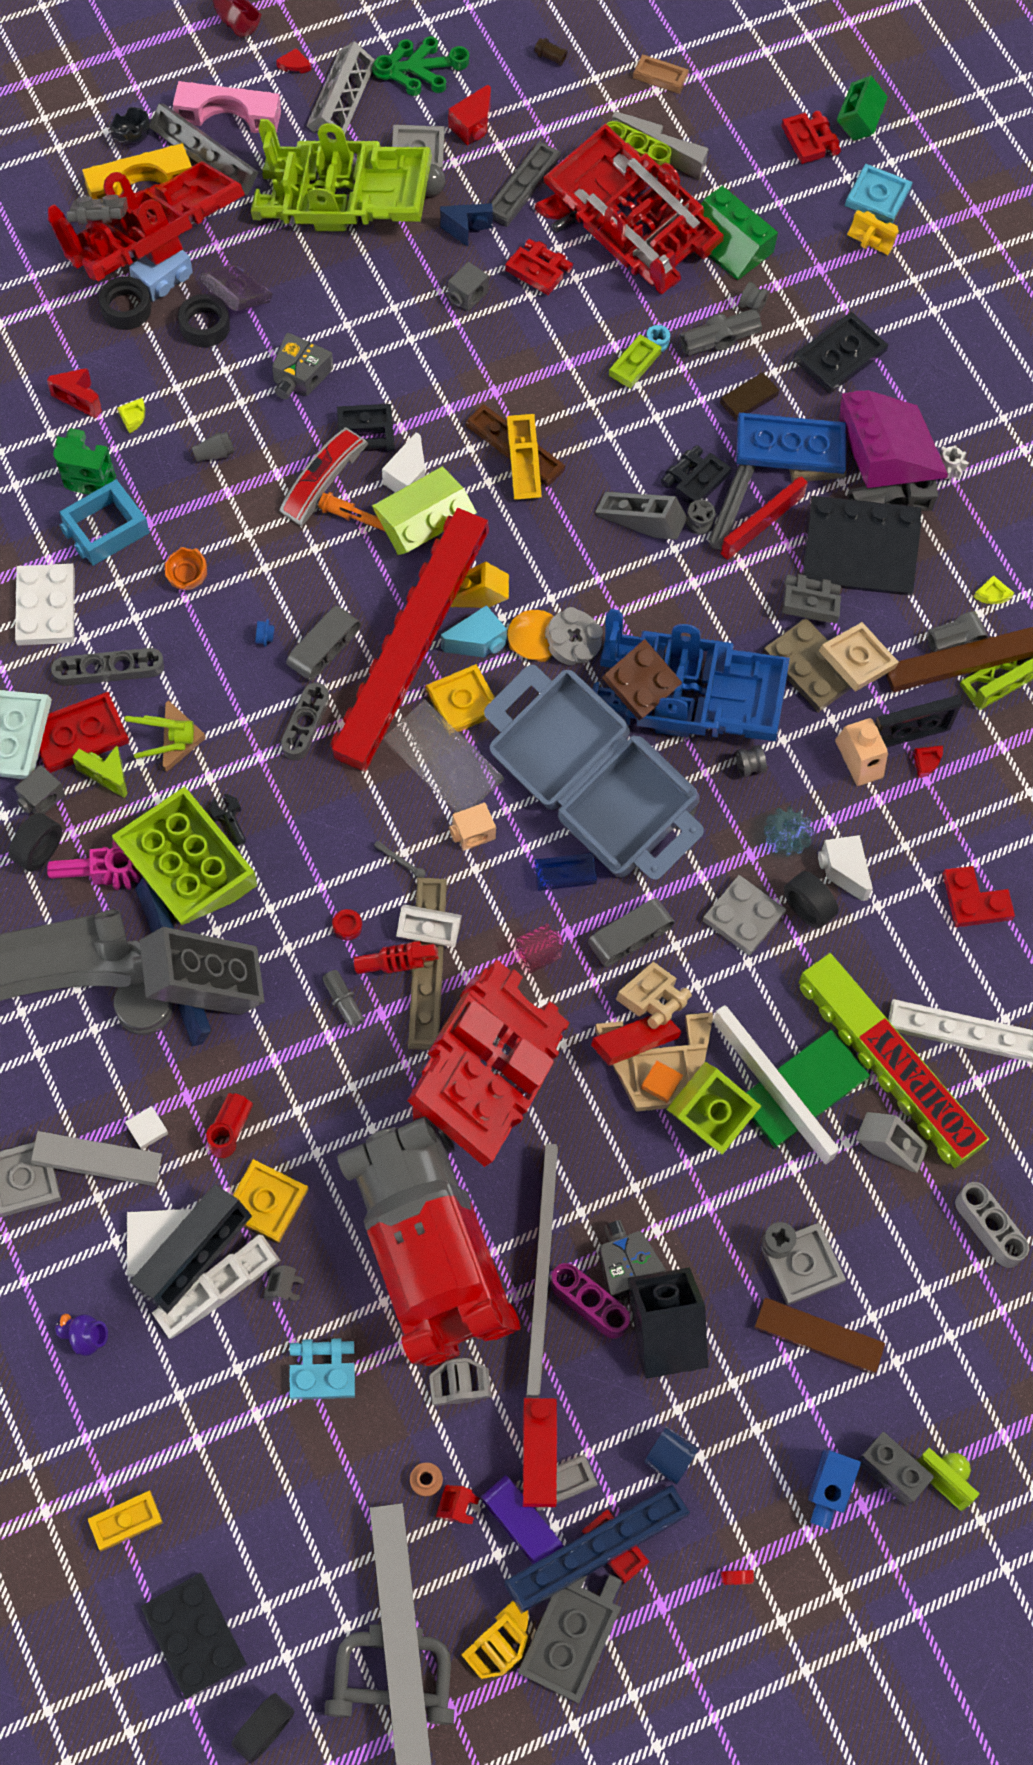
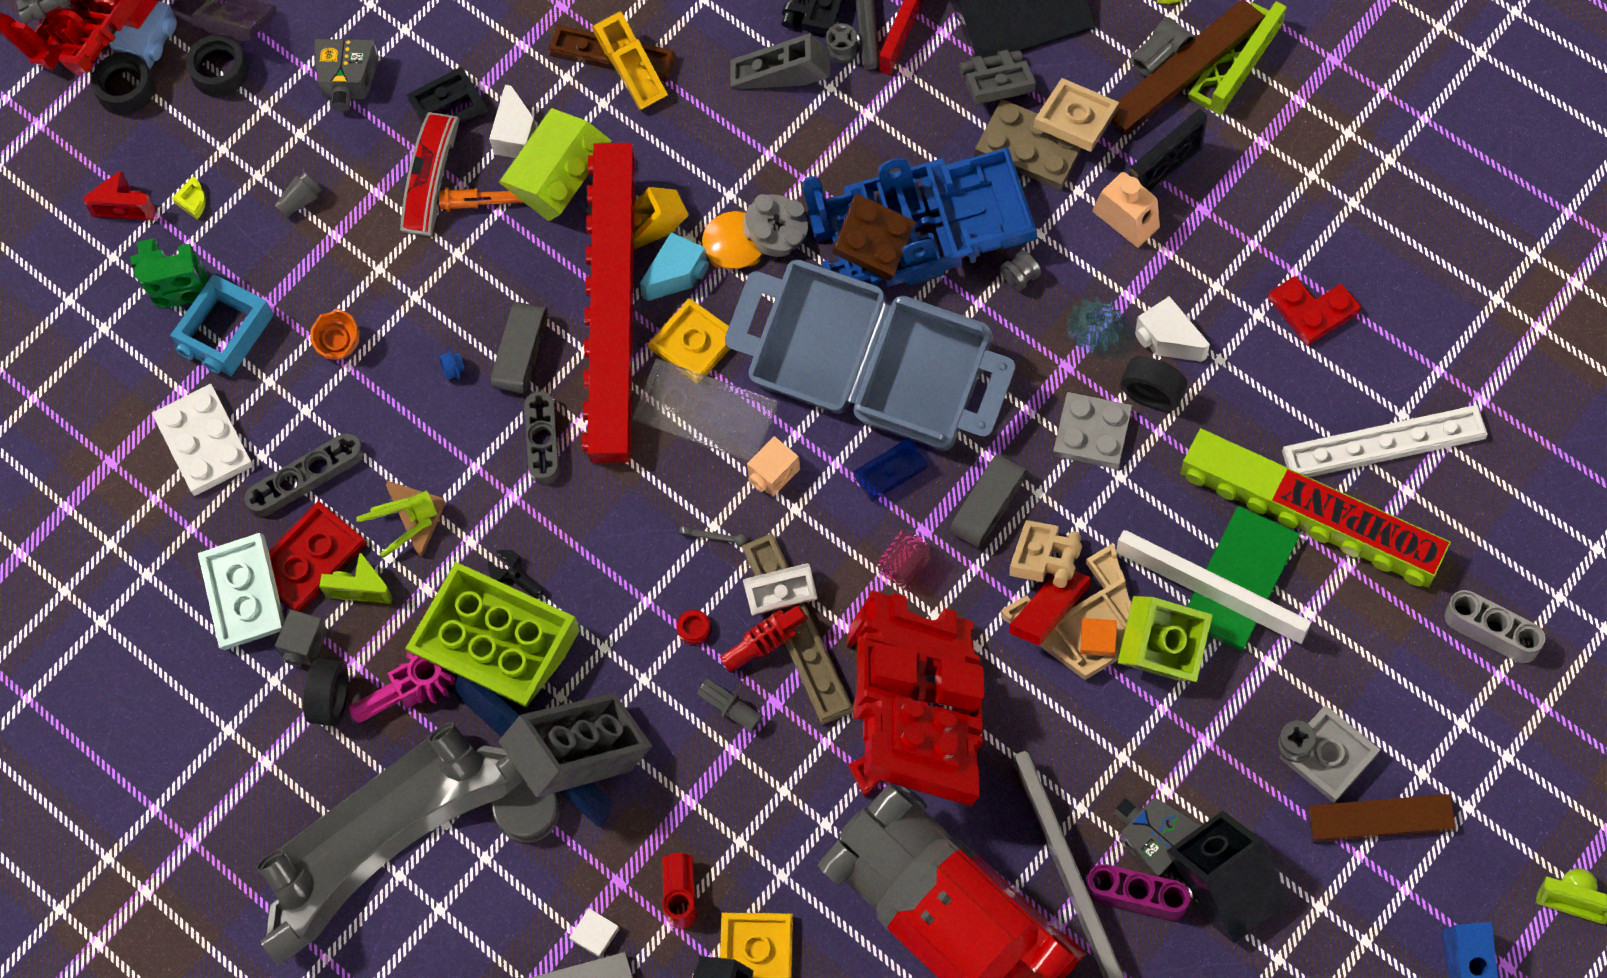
camera: 15 degrees left, 0 degrees up
(892, 1140) = (1354, 589): light grey slope -> none
(895, 1469) = (1523, 914): dark grey brick -> none
(927, 759) = (1195, 189): red tile -> none

